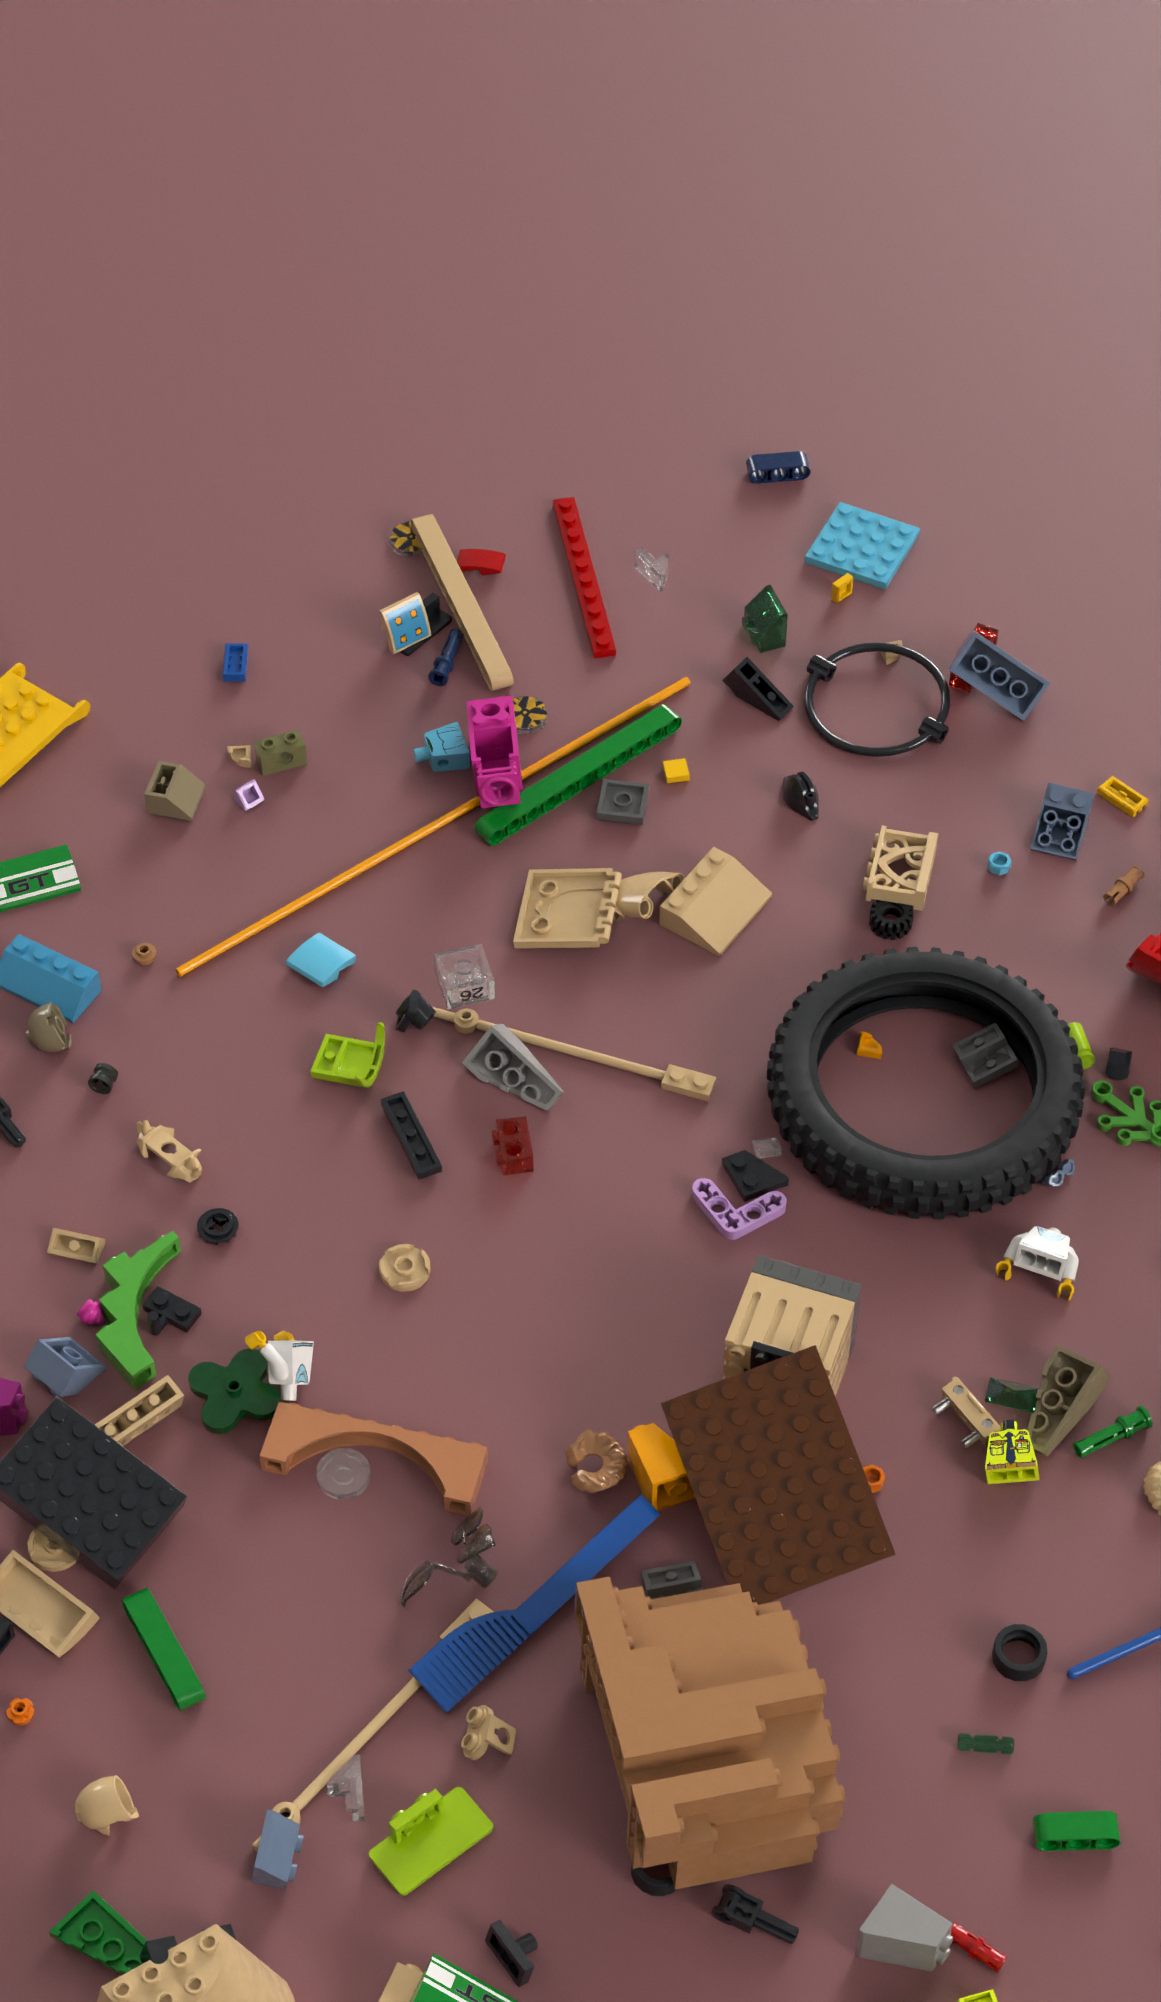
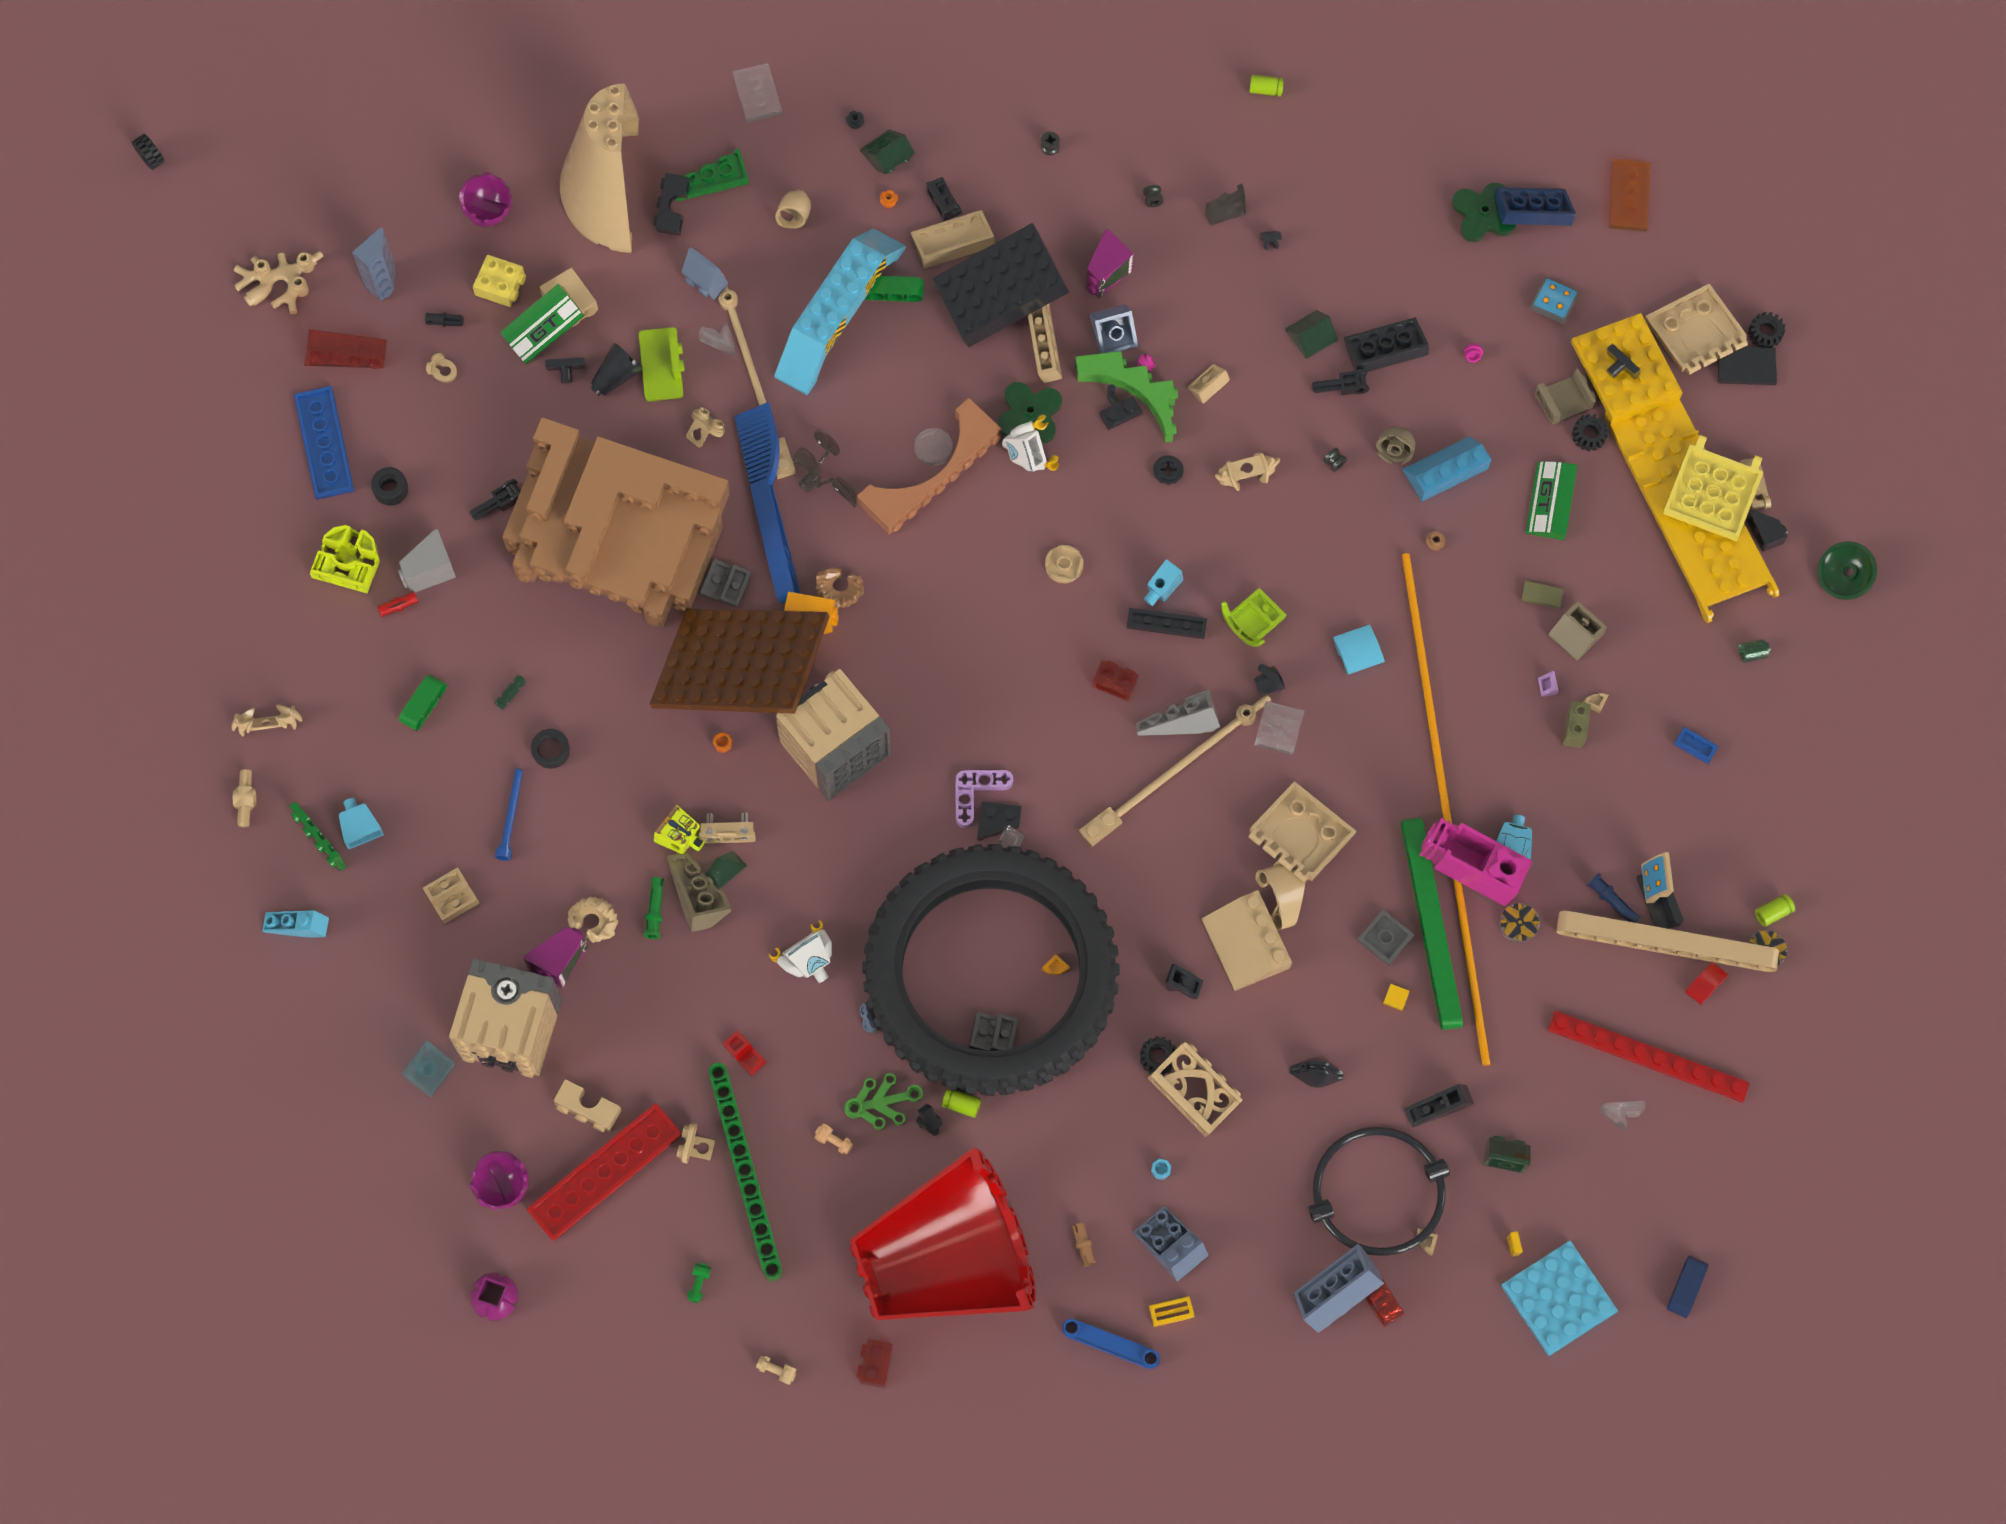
camera: 120 degrees right, 20 degrees up
(99, 659) = (1754, 650): none -> clear green brick
(147, 843) = (1542, 594): none -> olive tile
(219, 1659) = (834, 307): none -> medium azure slope
(367, 1153) = (1167, 576): none -> medium azure torso
(368, 544) = (1774, 910): none -> lime piece
(481, 1880) = (614, 371): none -> black cone
(803, 932) = (1183, 981): none -> black slope

